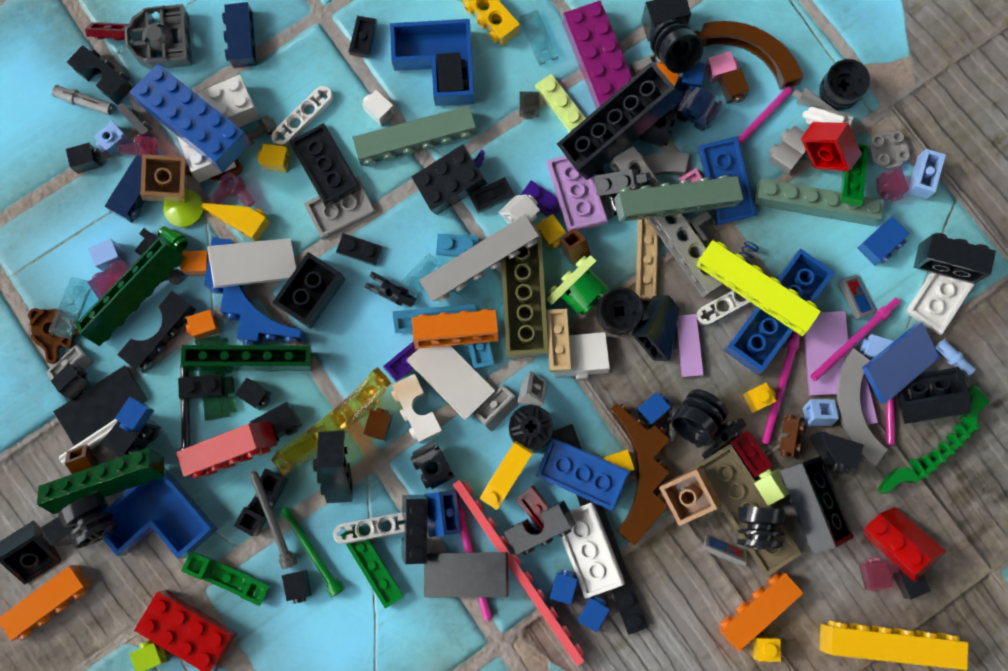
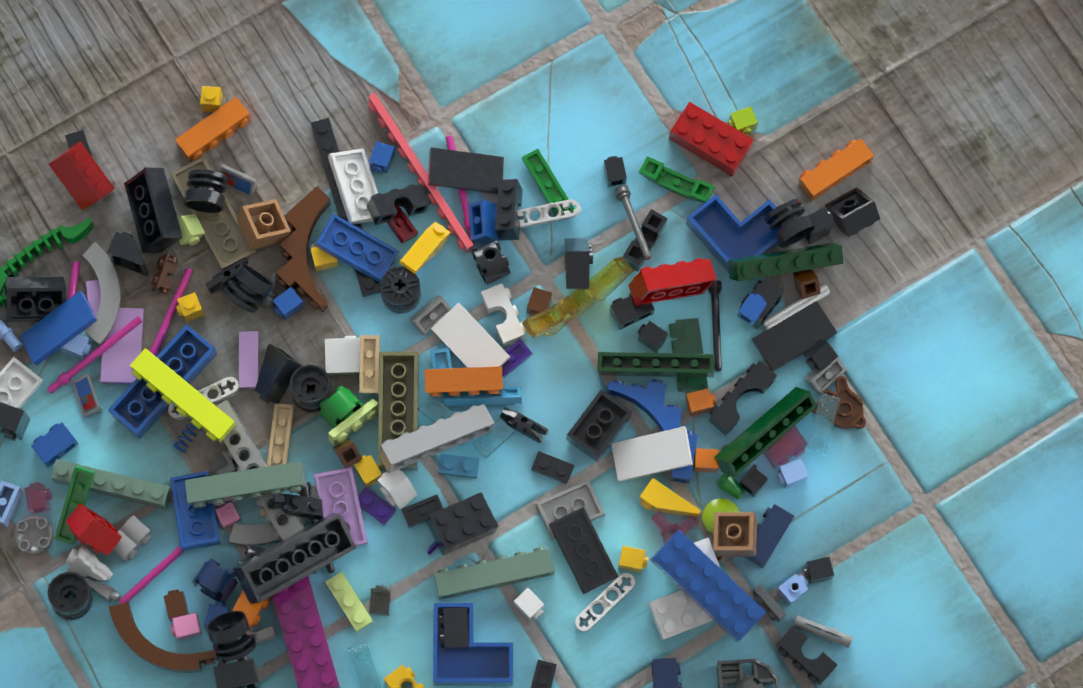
camera: 175 degrees right, 5 degrees down
(142, 145) = (758, 576): clear pink axle -> none
(200, 386) = (701, 344): black plate -> none
(266, 125) = (639, 594): dark grey bar -> none
(333, 585) = (582, 170): green piece -> none
(532, 390) = (396, 323): light grey slope -> none
(593, 613) = (357, 135): blue brick -> none
(751, 454) = (204, 260): dark red plate -> none
(820, 412) = (144, 291): light blue brick -> none
(876, 574) = (108, 153): clear pink brick -> none
(893, 645) = (105, 94): yellow brick -> none

